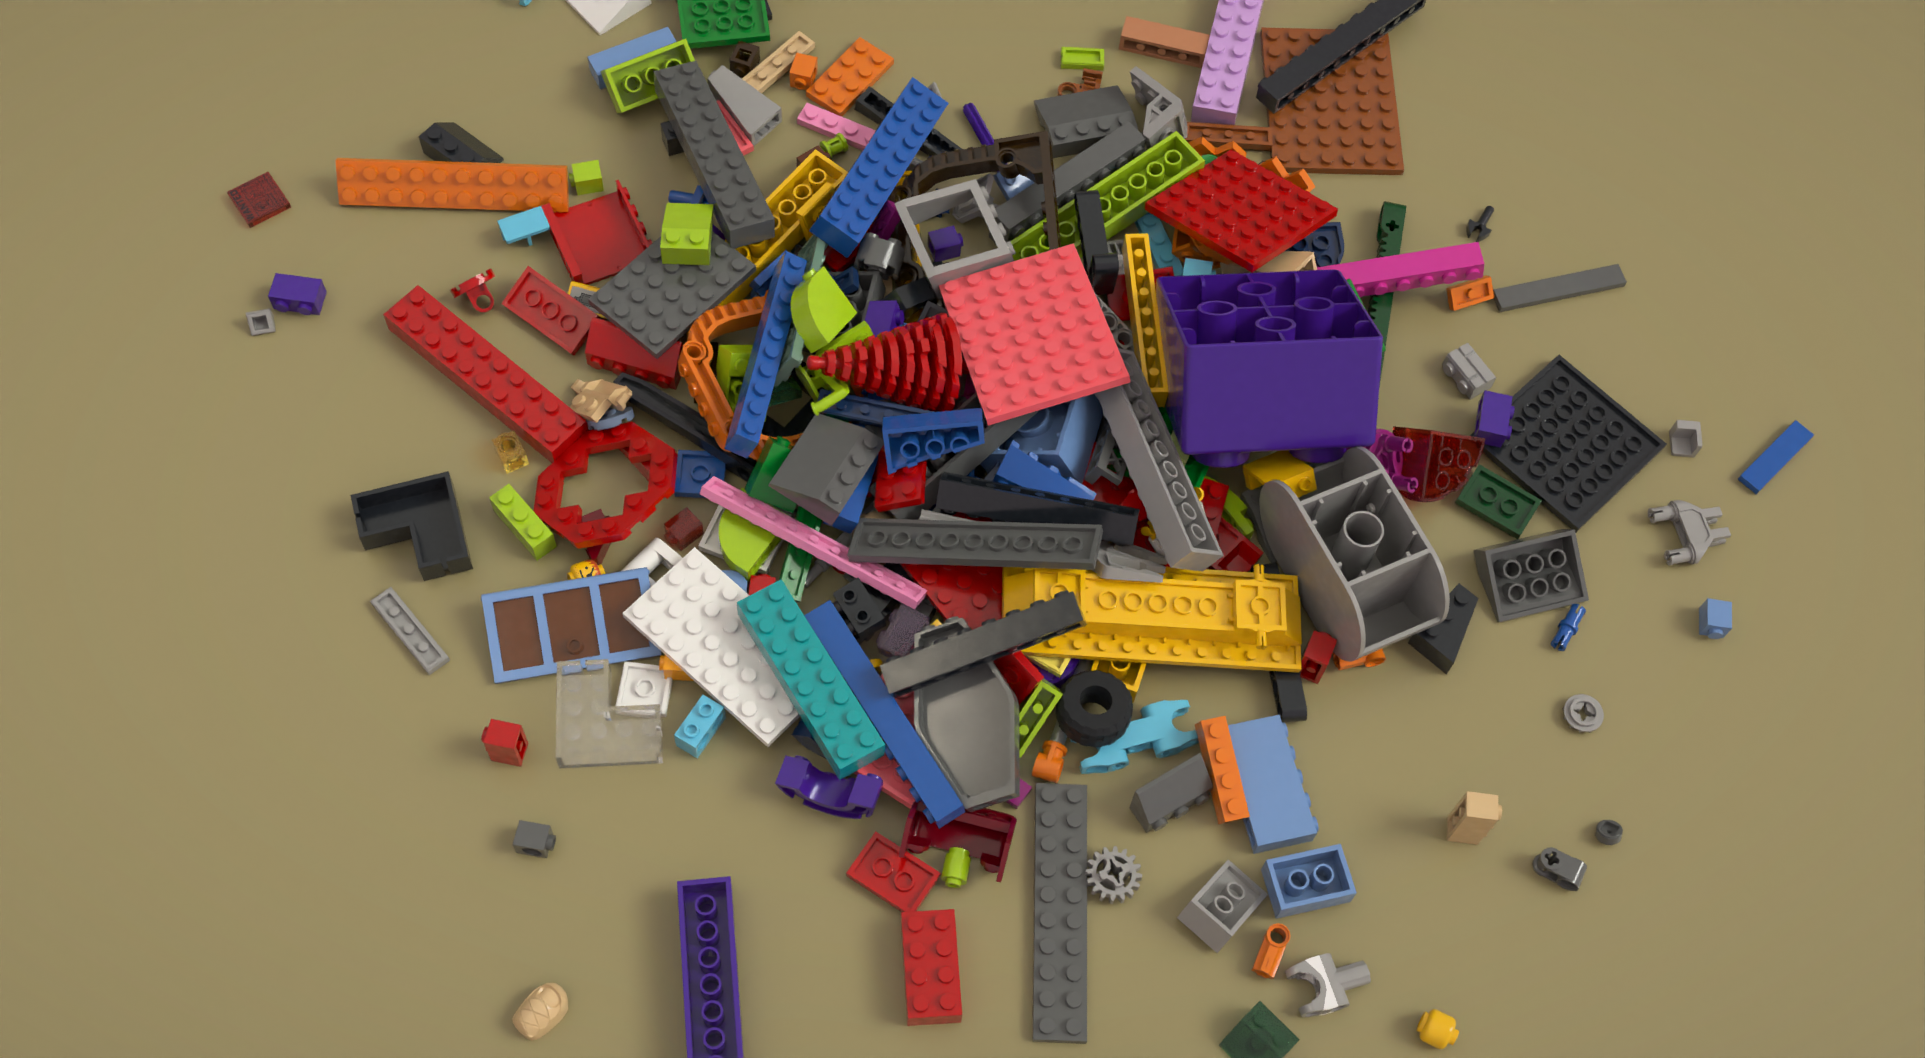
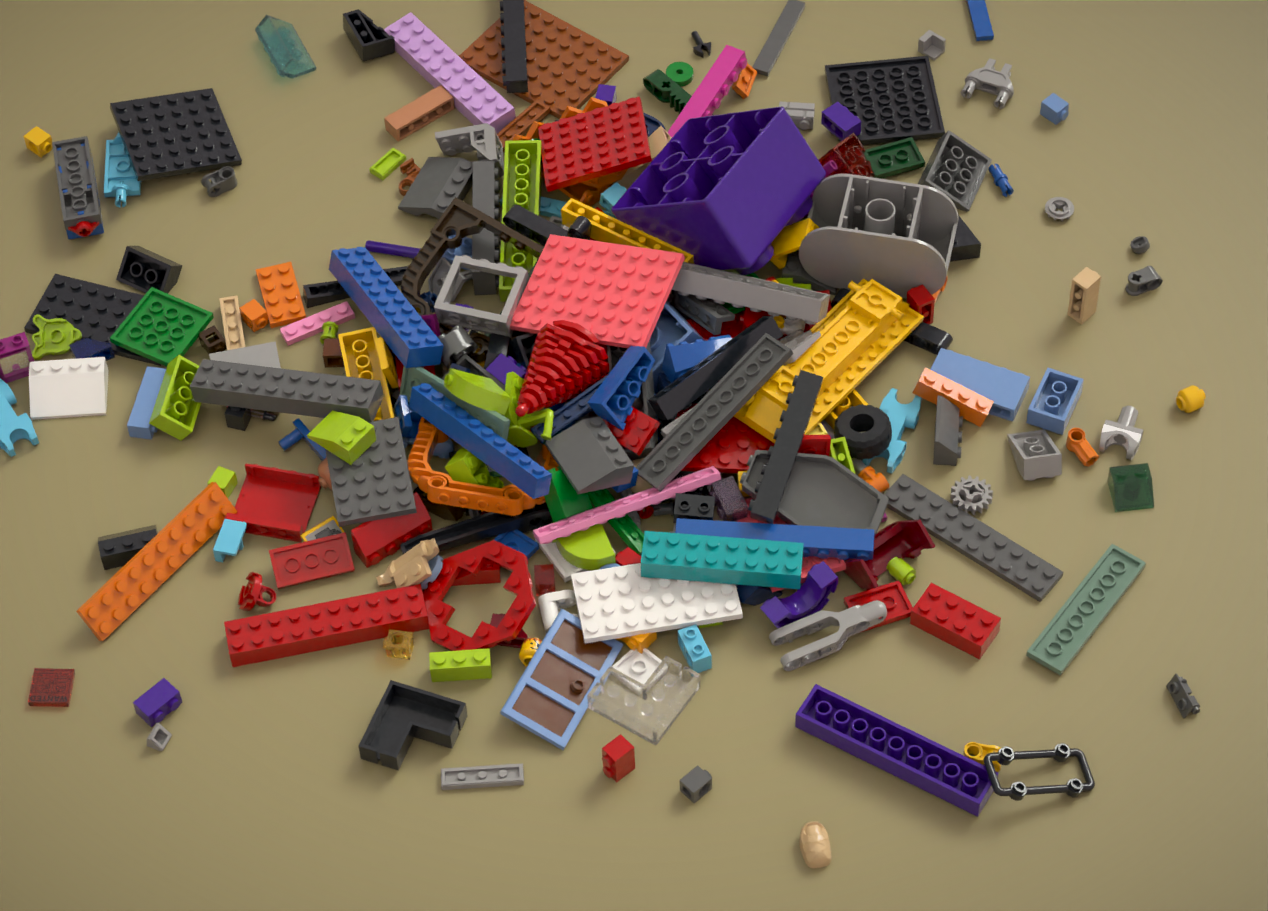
camera: 45 degrees left, 10 degrees down
(839, 857) = (850, 621): none -> light grey piece
(1330, 185) = (606, 93): none -> dark purple brick
(1421, 238) = (680, 73): none -> green piece

